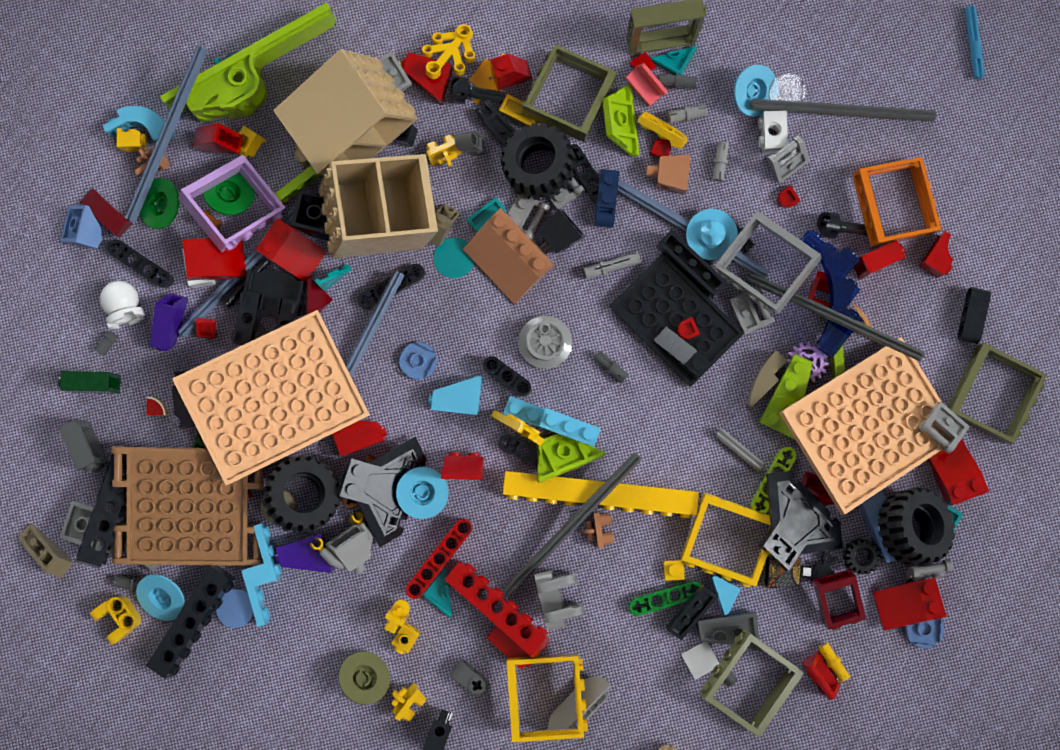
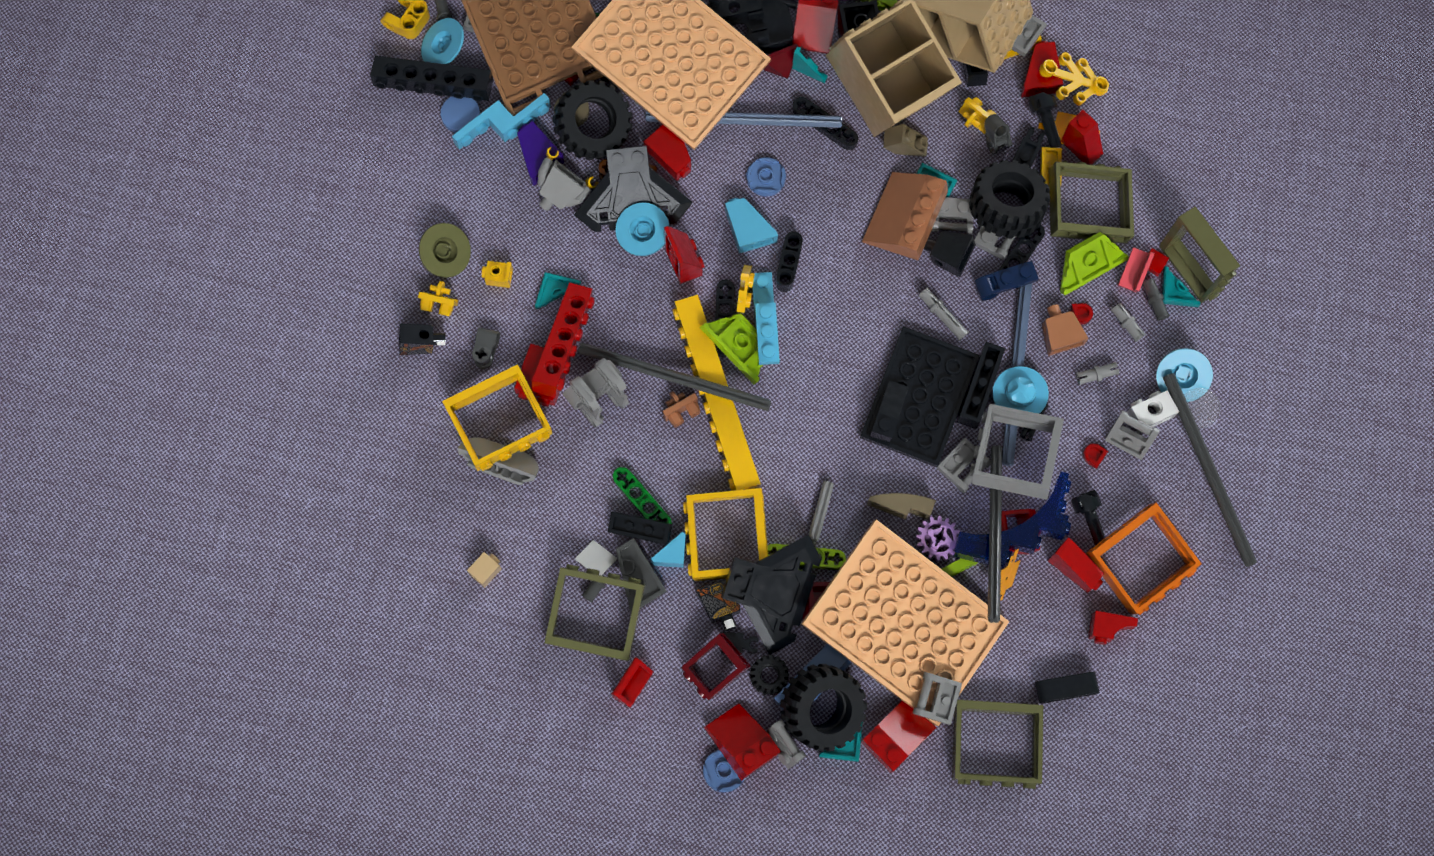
camera: 60 degrees right, 10 degrees down
(397, 615) = (515, 254): yellow hips -> none
(433, 565) = (595, 278): red beam -> none
(452, 259) = (878, 166): teal sticker -> none
(545, 342) = (839, 282): light grey wheel -> none
(611, 366) = (844, 354): dark grey axle -> none
(663, 130) = (1101, 305): yellow hinge -> none
(673, 570) = (672, 497): yellow plate -> none
(687, 329) = (915, 408): red tile -> none
(788, 391) = (910, 529): lime wing -> none
(834, 662) = (650, 691): yellow pin -> none
(974, 42) = (1348, 574): dark azure axle -> none

